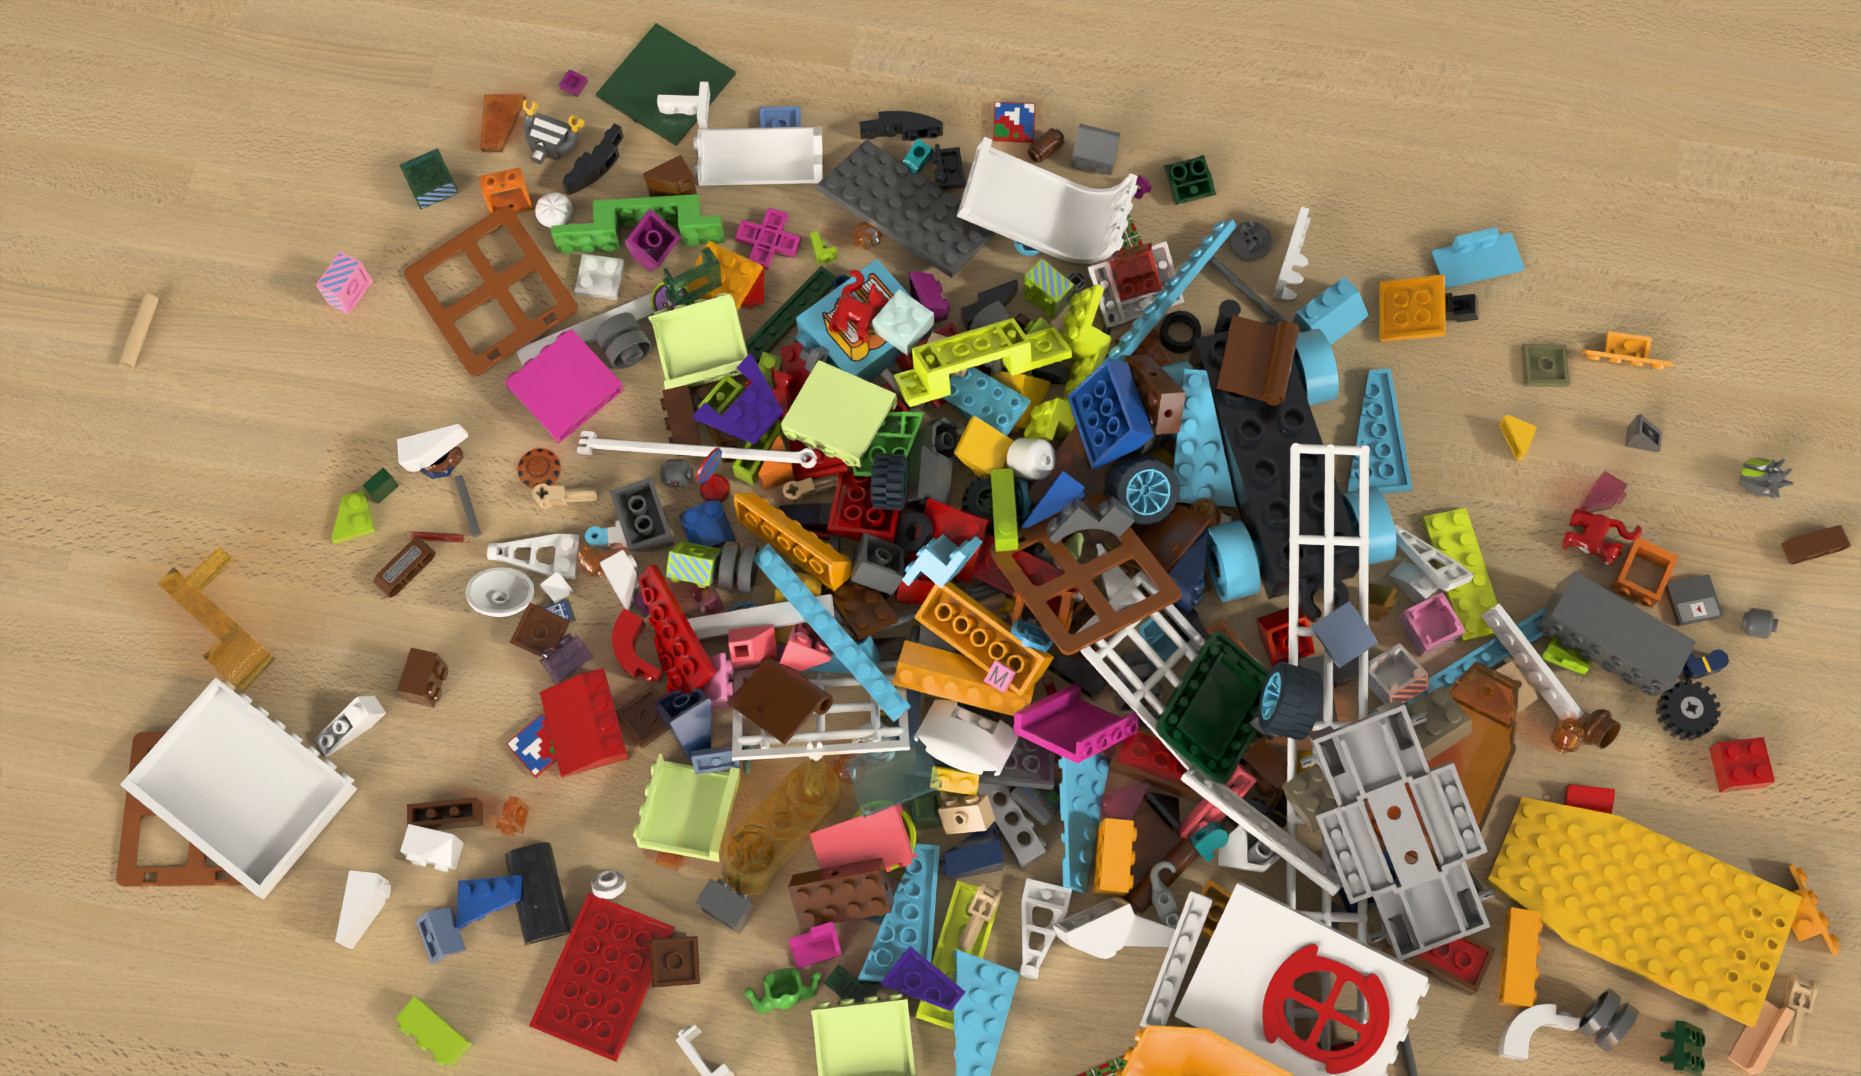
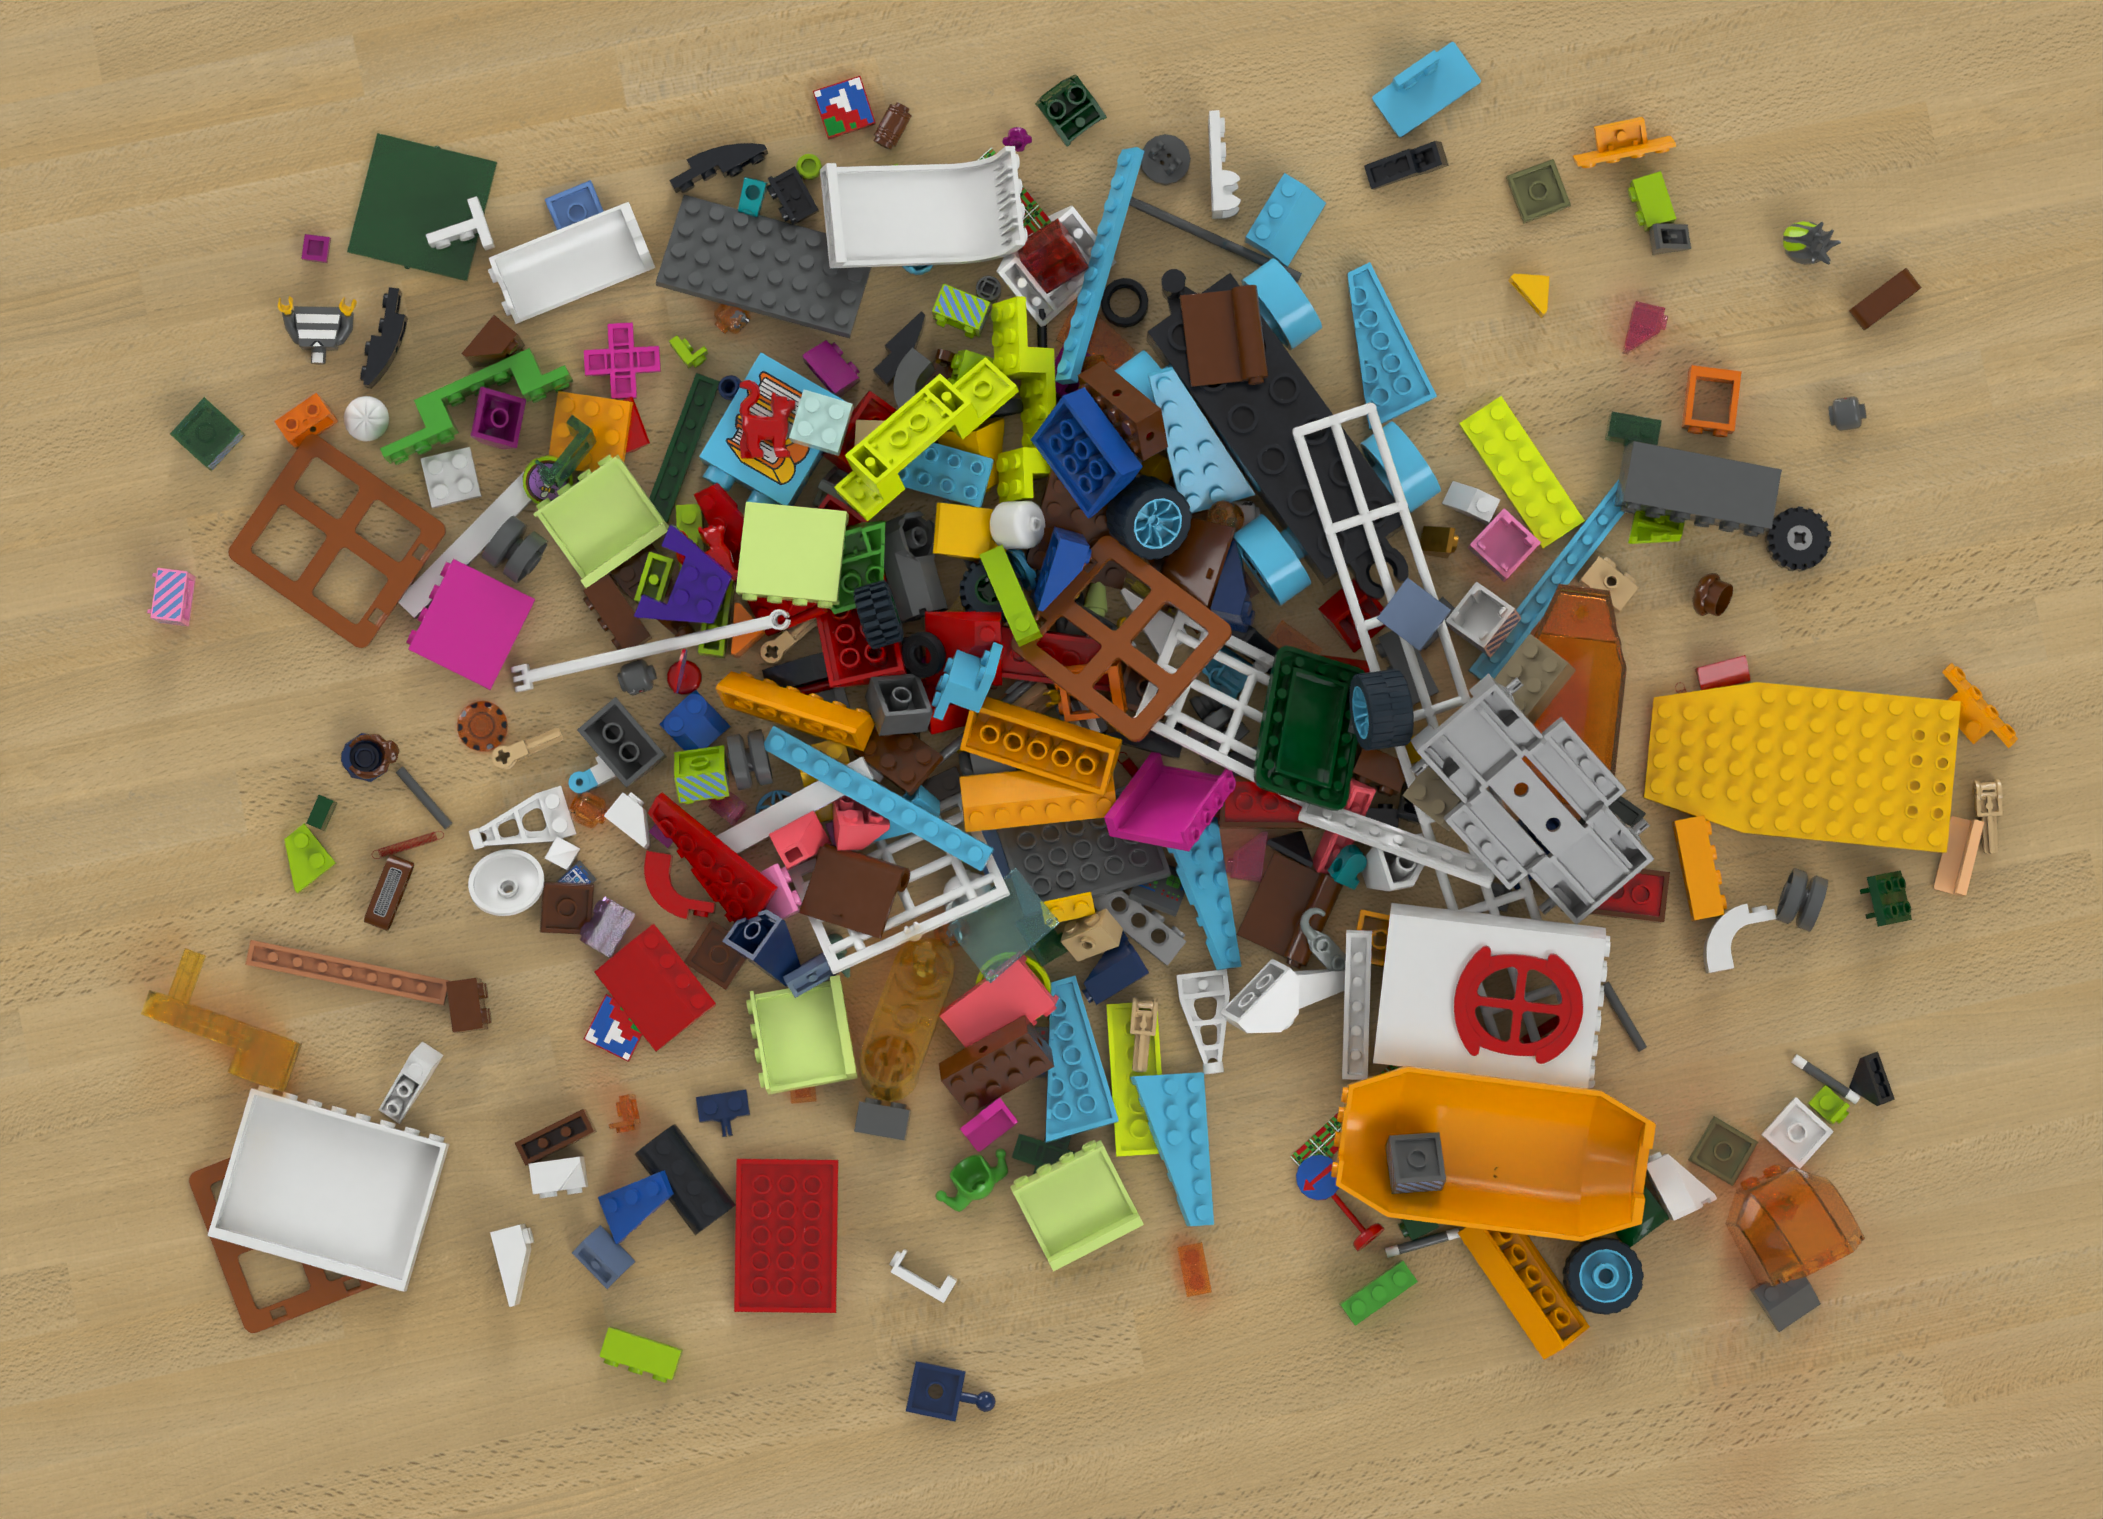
camera: 20 degrees left, 15 degrees up
(338, 616) = (347, 972): none -> nougat plate
(427, 447) = (359, 758): white slope -> none
(498, 119) = (250, 326): clear orange wing -> none
(596, 846) = (723, 1108): none -> dark blue plate
(608, 884) = (753, 1142): white plate -> none
(674, 961) = (853, 1194): reddish brown tile -> none
(813, 355) = (737, 497): dark grey tile -> none
(923, 981) = (1112, 1120): dark purple wing -> none
(966, 738) = (1062, 859): white slope -> none
(968, 153) = (808, 166): none -> lime tile
(1000, 676) = (1074, 783): bright pink tile -> none
(1031, 635) = (1090, 729): dark azure wheel -> none
(1078, 516) = (1093, 580): dark grey arch -> none
(1095, 149) = (952, 116): slope -> none
(1114, 857) = (1258, 923): light orange brick -> none
(1412, 308) = (1371, 181): light orange plate -> none
(1445, 578) = (1504, 490): white plate -> none
(1531, 663) = (1621, 552): white plate -> none
(1563, 564) = (1630, 428): none -> clear green brick
(1567, 735) = (1680, 615): clear orange head -> none
(1594, 532) = (1646, 375): red animal -> none
(1638, 399) = (1651, 200): none -> lime brick
(1693, 600) = (1772, 410): dark grey tile -> none
(1705, 665) = (1810, 475): dark blue leg -> none
(1741, 764) = (1868, 579): red brick -> none

